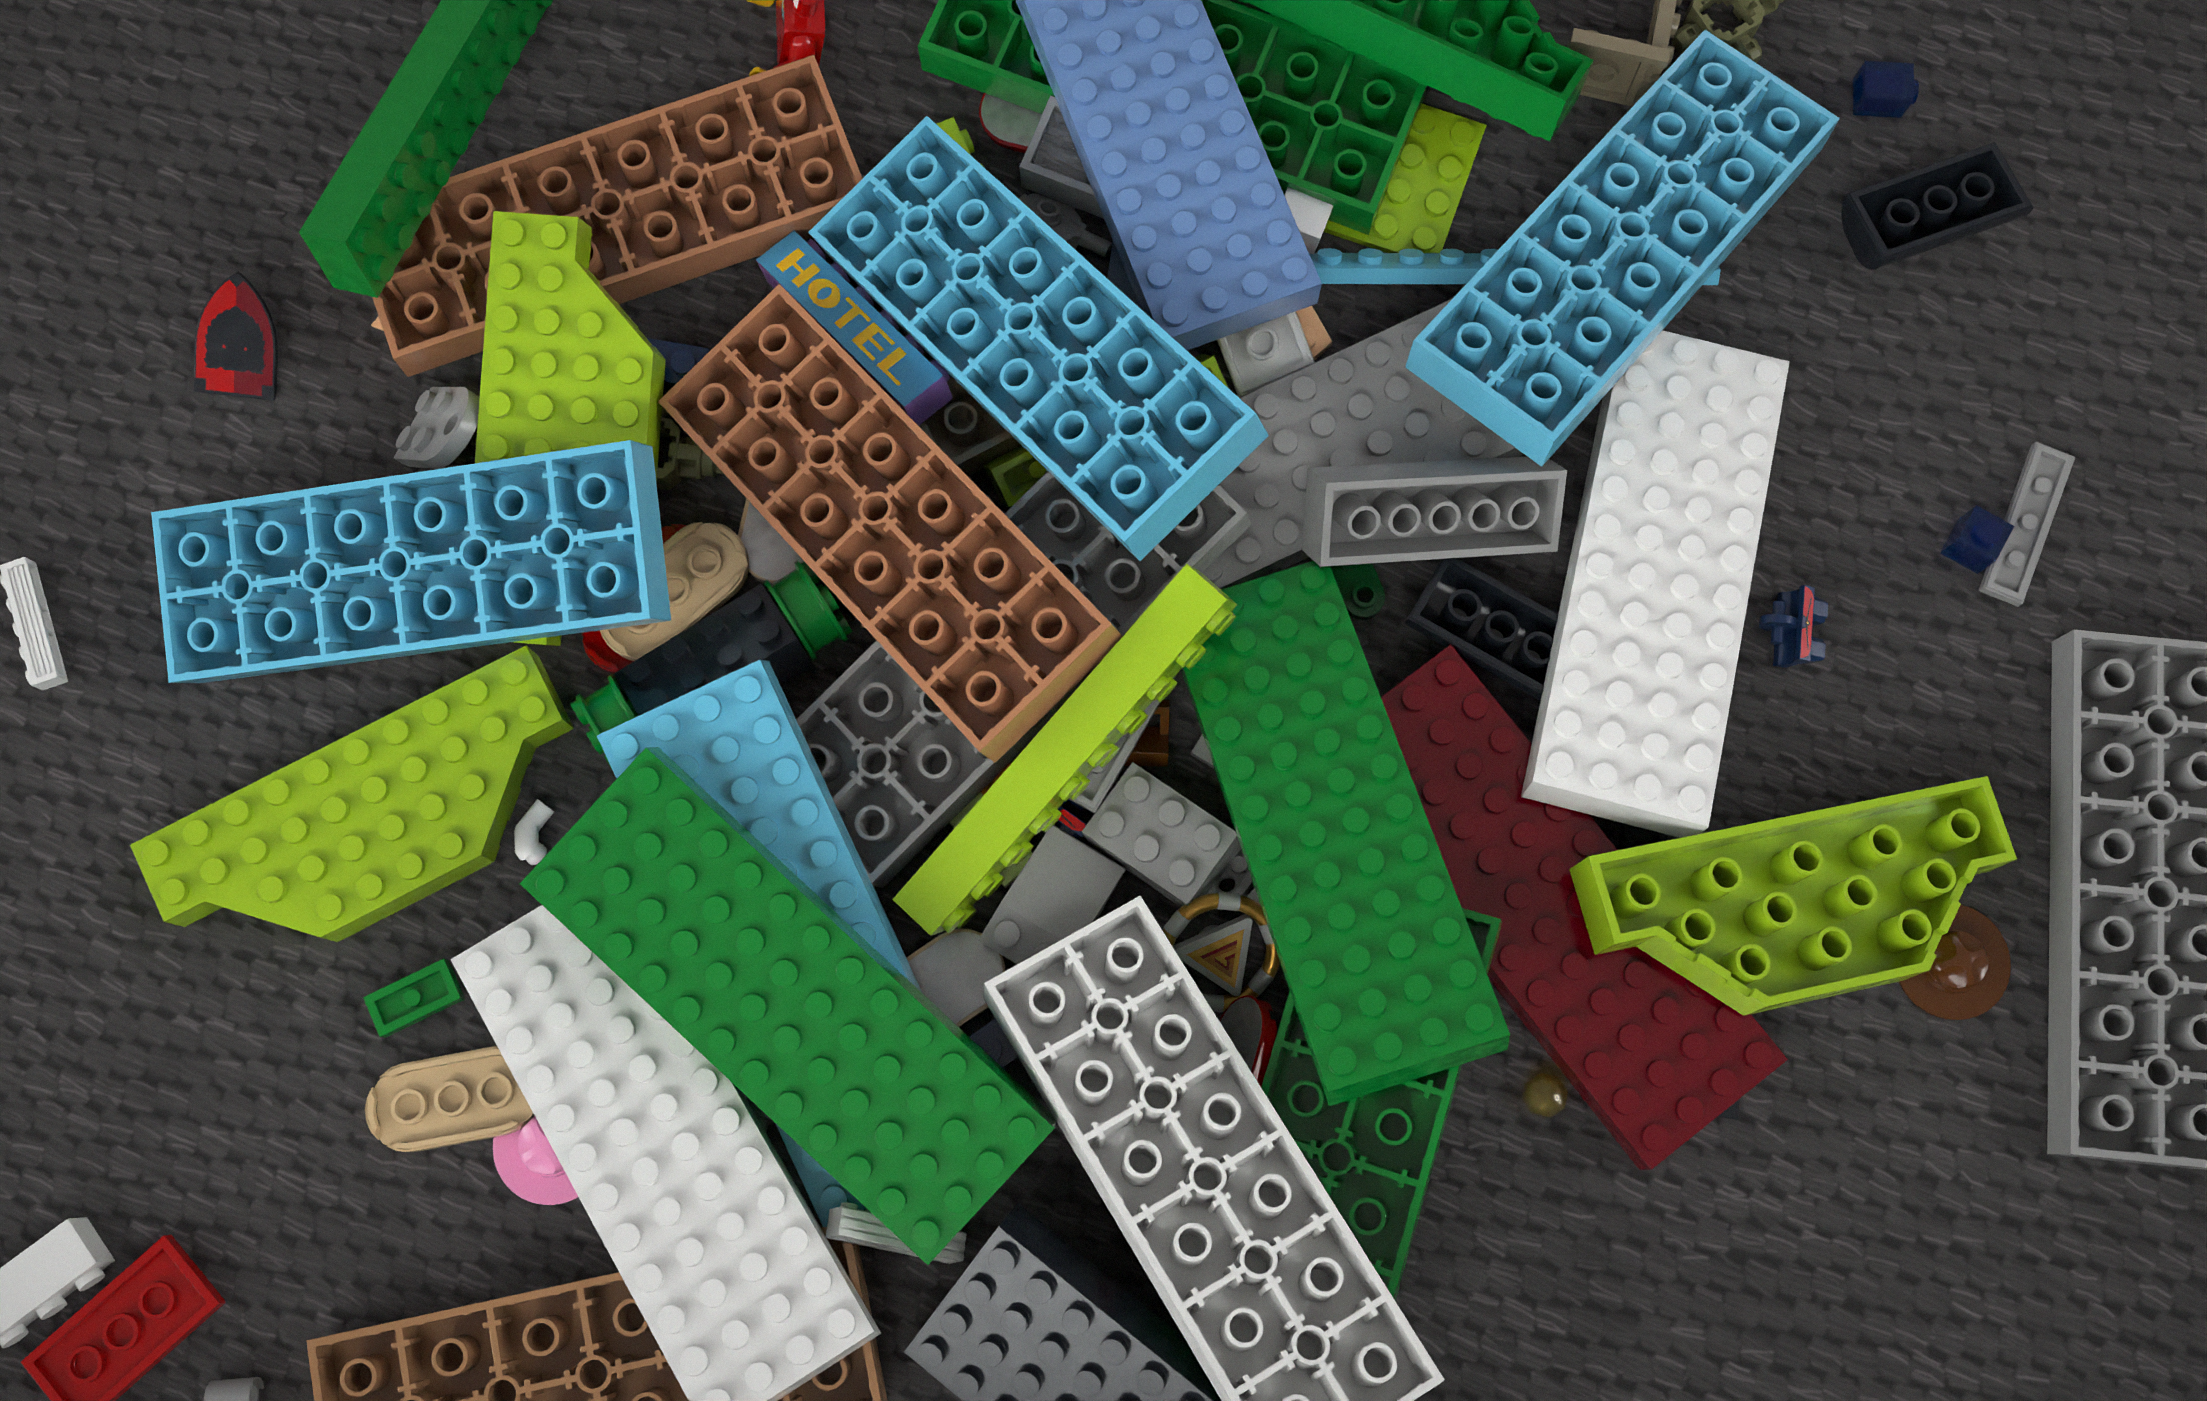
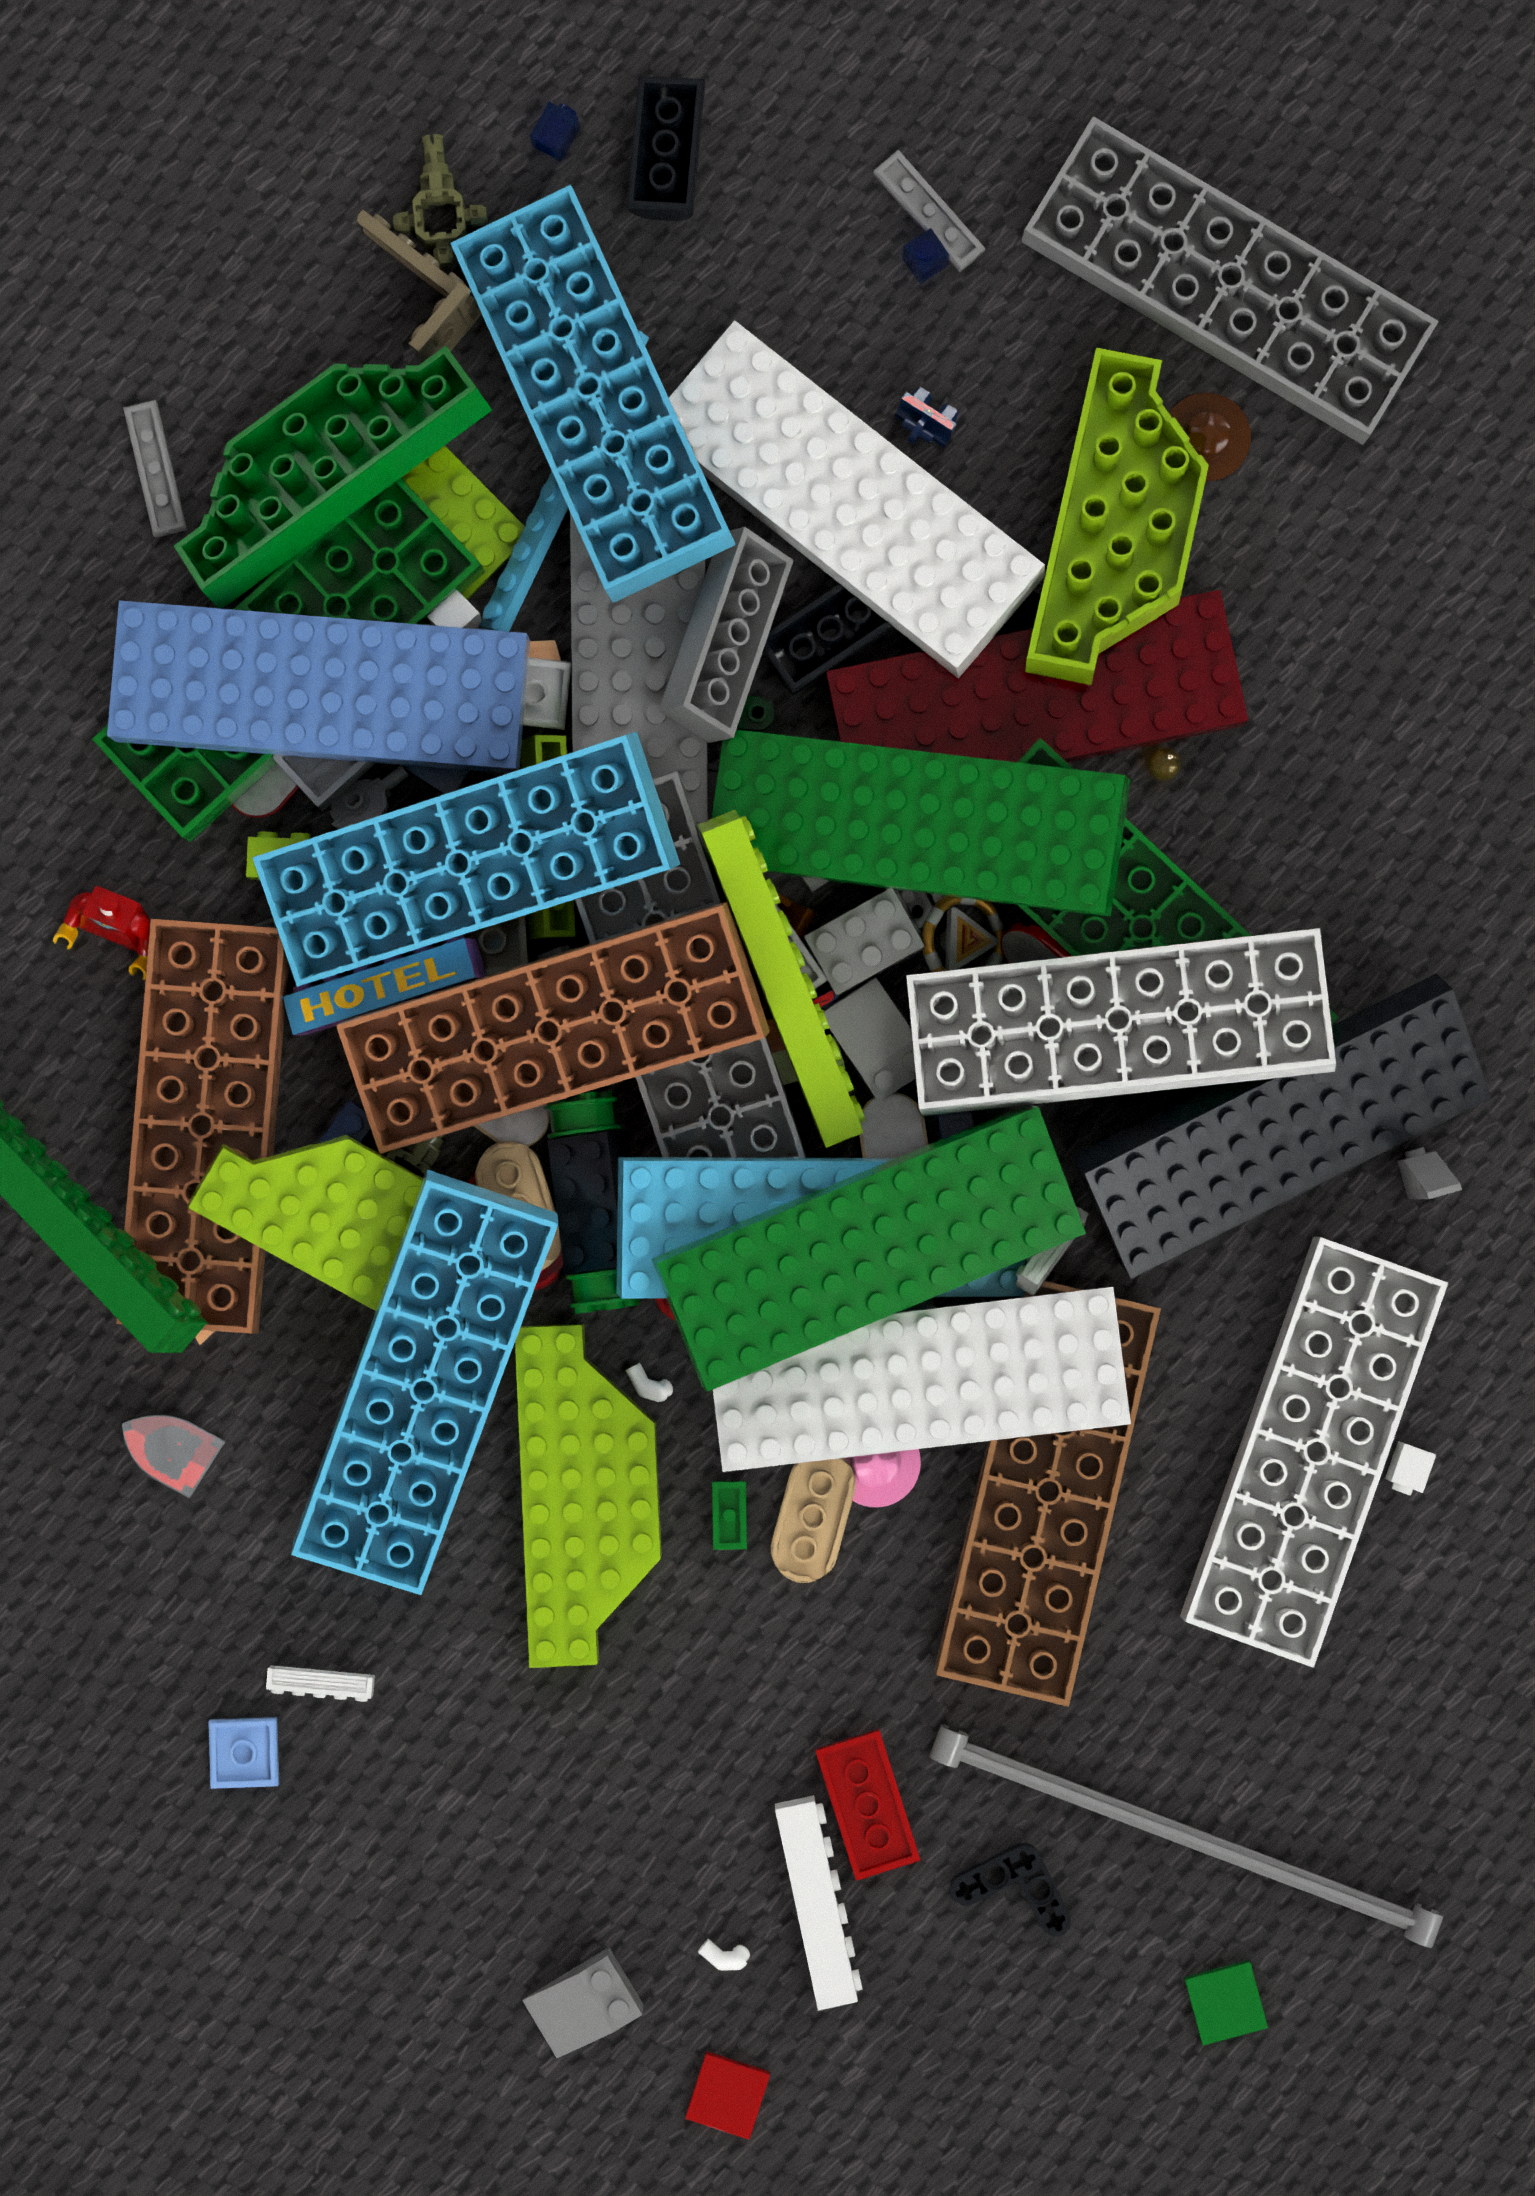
camera: 65 degrees left, 10 degrees up
(440, 429) = (314, 1324): light grey plate -> none

